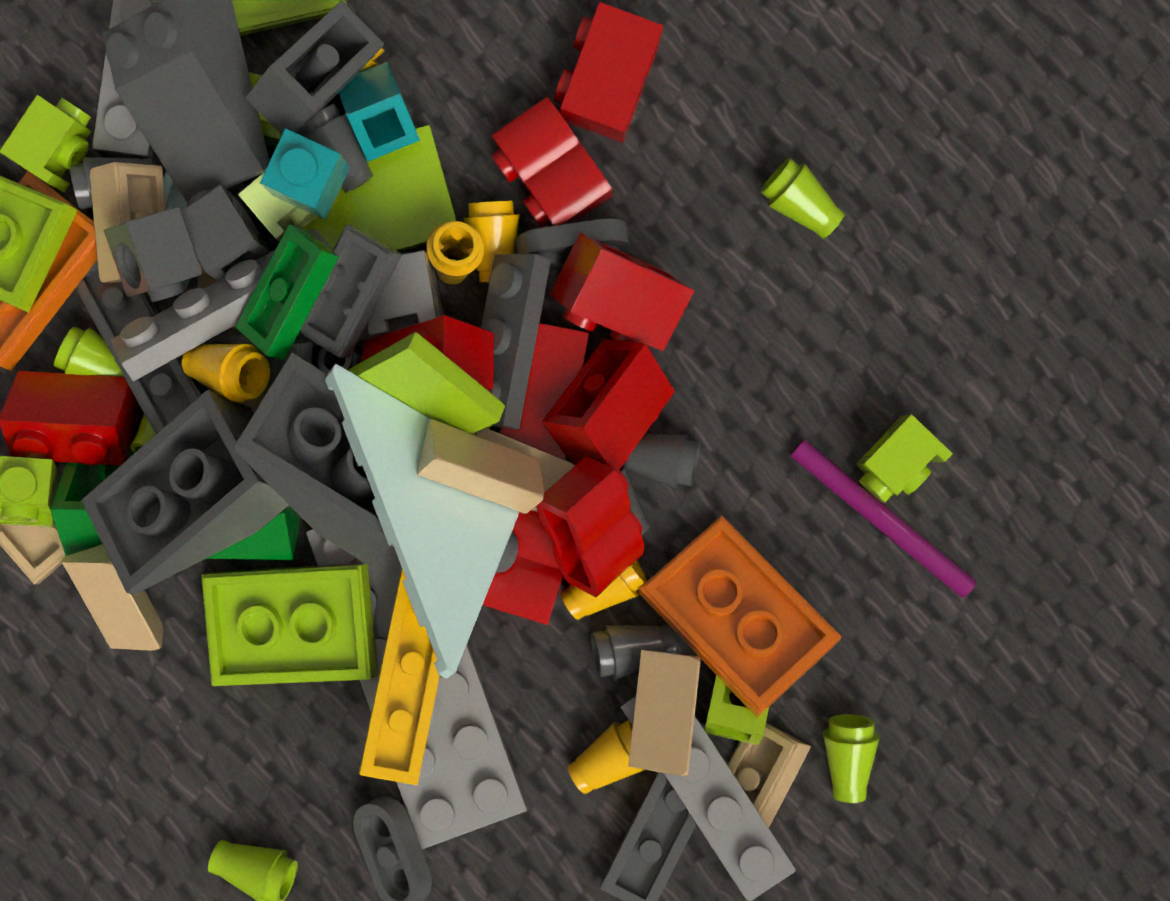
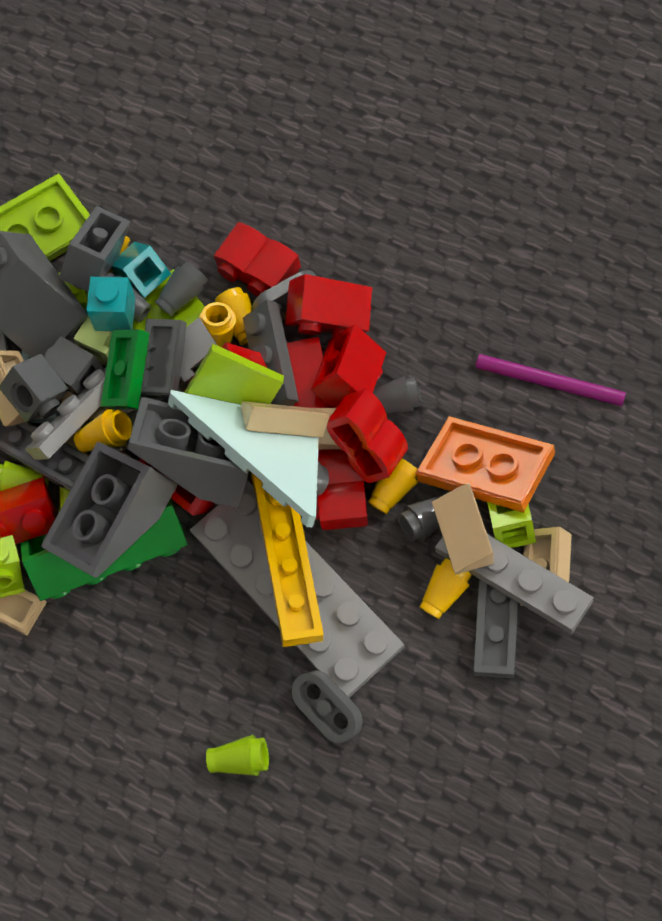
camera: 10 degrees left, 20 degrees down
(122, 618) = (80, 614): tan slope -> none
(289, 625) = (201, 588): lime tile -> none
(425, 169) = (181, 288): none -> dark grey cone
(609, 72) = (269, 197): red brick -> none
(801, 197) = (415, 221): lime cone -> none
(850, 755) = (597, 524): lime cone -> none
(900, 459) = (543, 336): lime brick -> none

